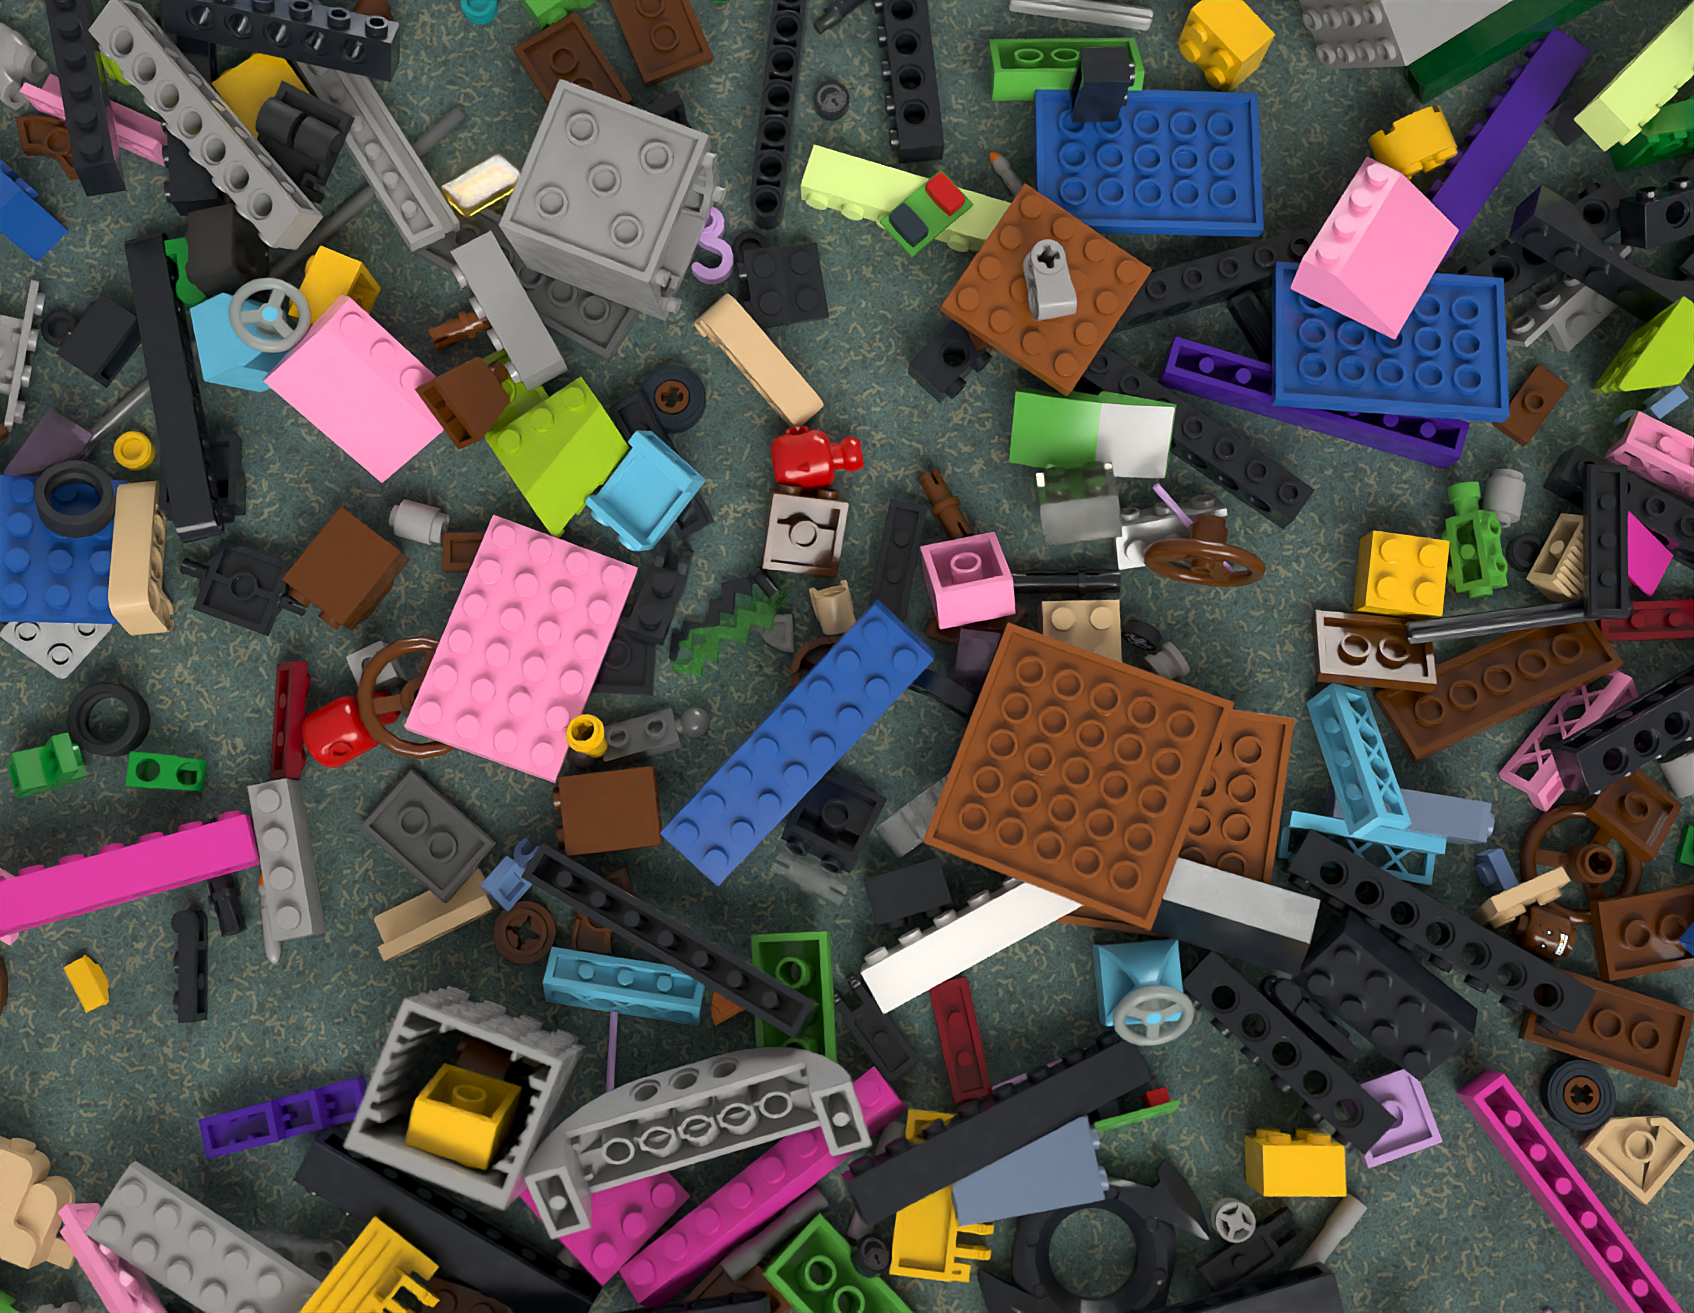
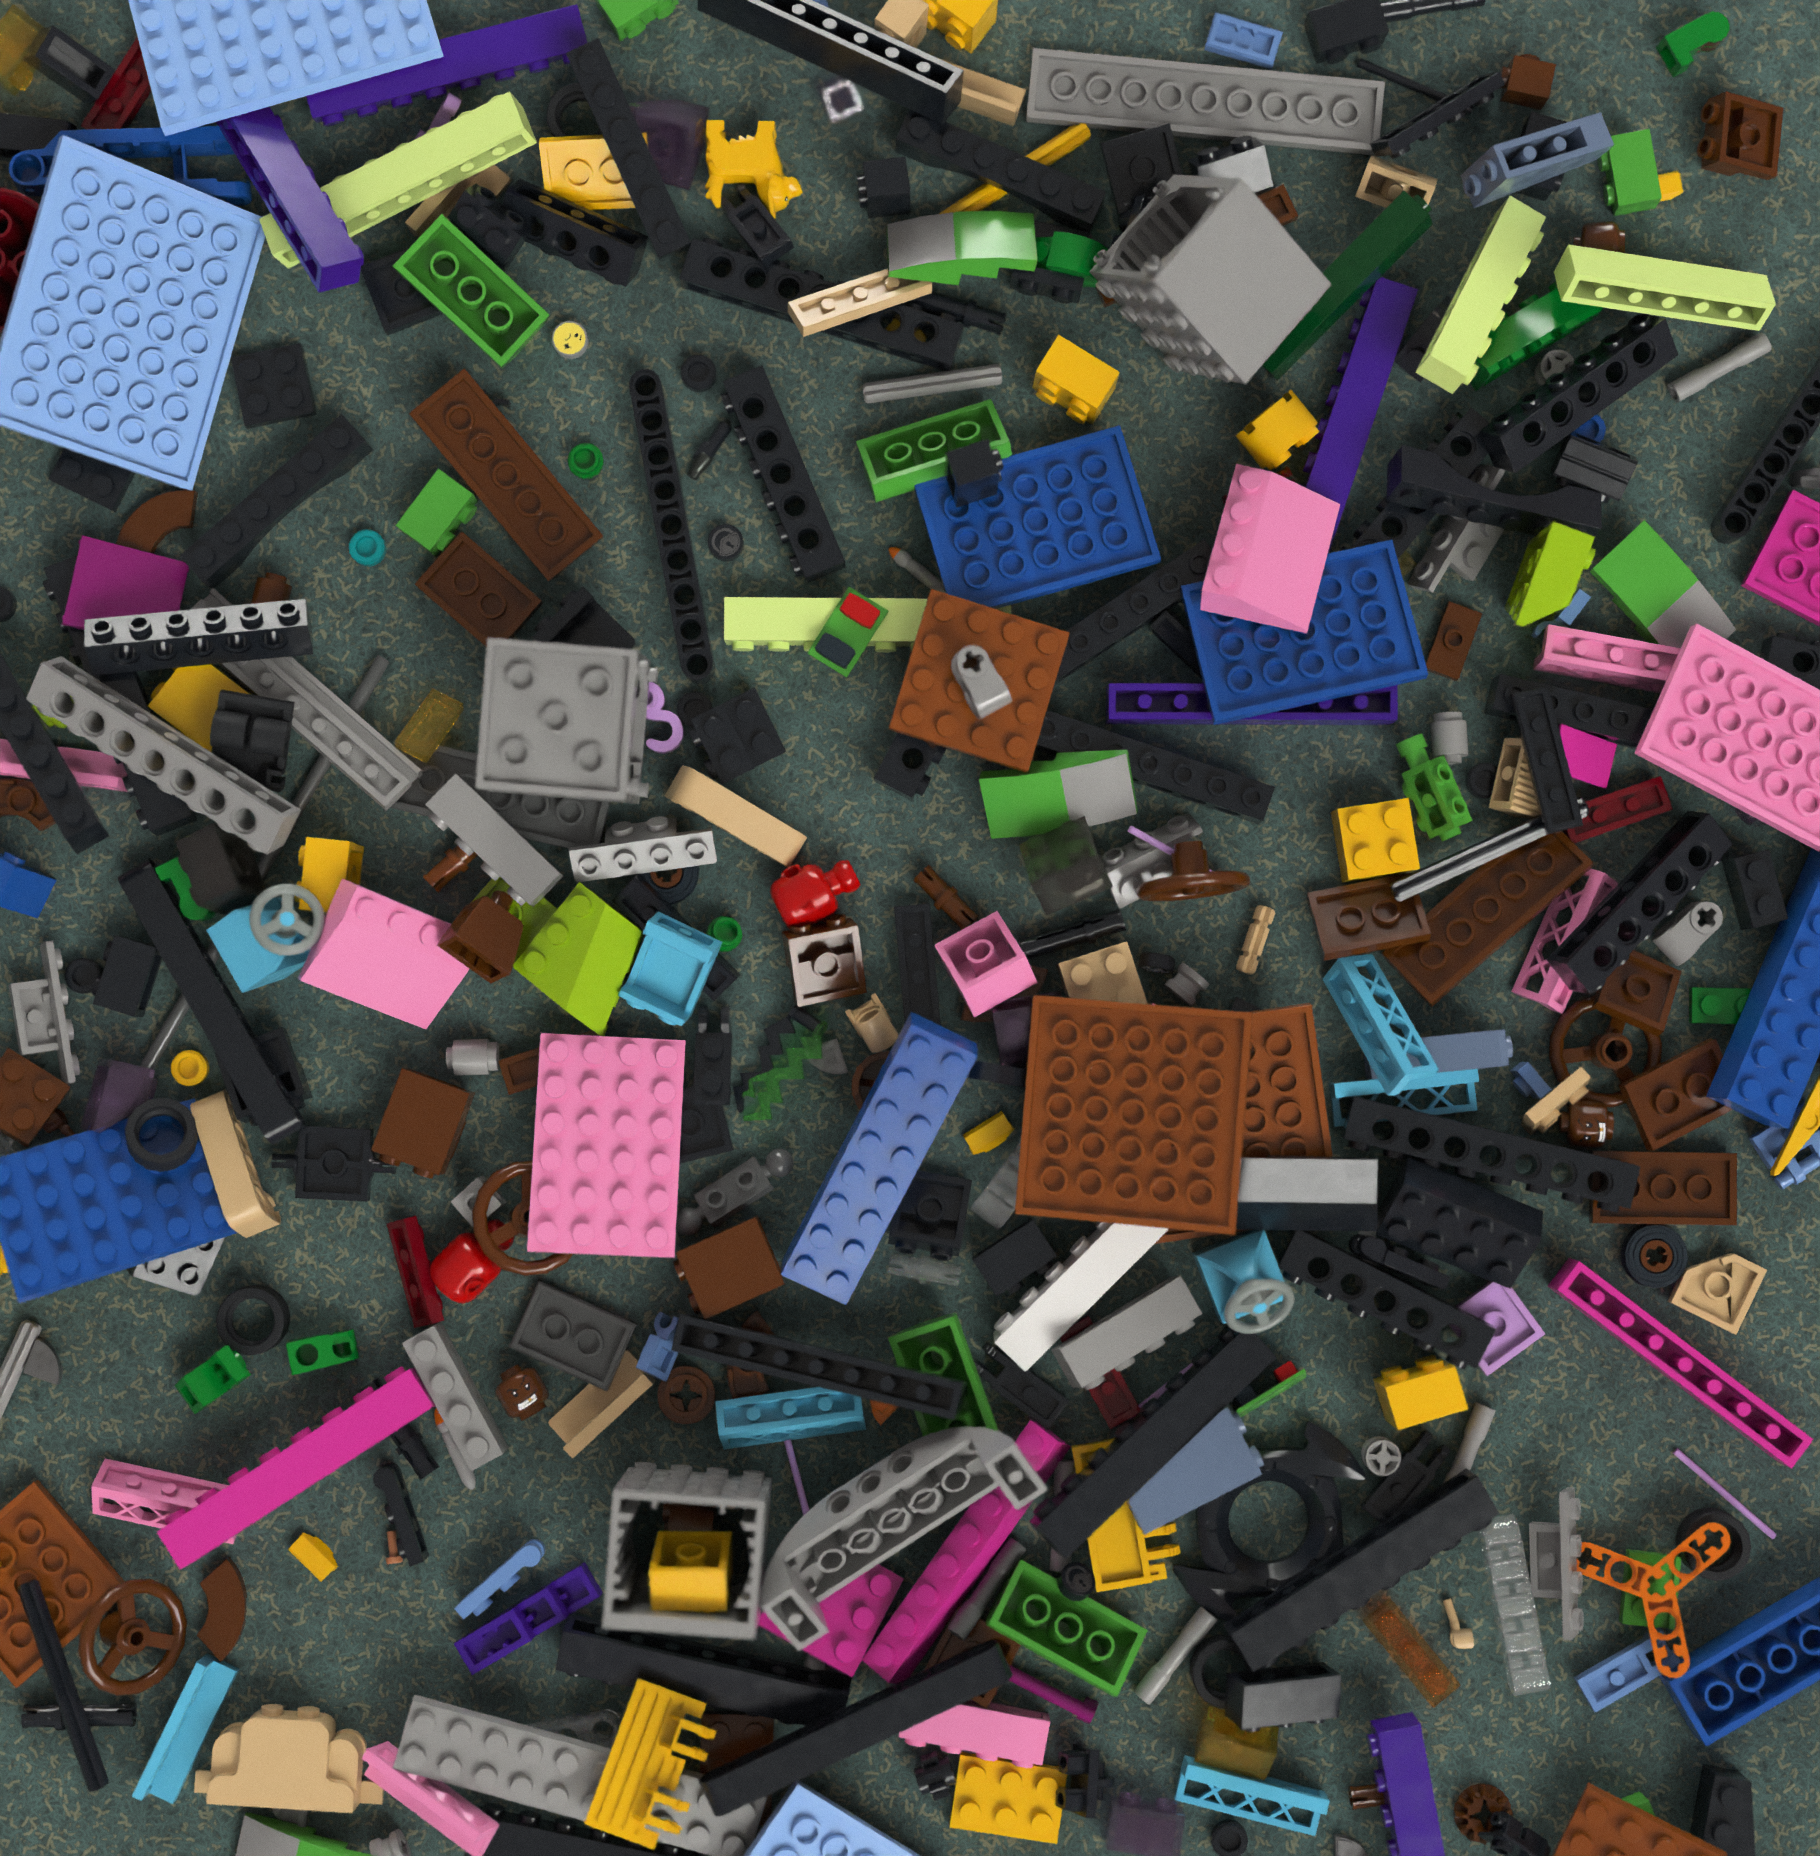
camera: 15 degrees left, 5 degrees up
(169, 1010) = (393, 1550): none -> nougat piece
(271, 1065) = (502, 1578): none -> medium blue plate
(355, 877) = (521, 1392): none -> reddish brown head
(587, 735) = (683, 1204): yellow cone -> none
(654, 367) = (642, 849): none -> light grey bracket
(715, 473) = (727, 931): none -> green plate
(918, 758) = (988, 1134): none -> yellow piece
(1002, 1004) = (1127, 1332): none -> light grey brick
(1248, 642) = (1255, 939): none -> tan axle

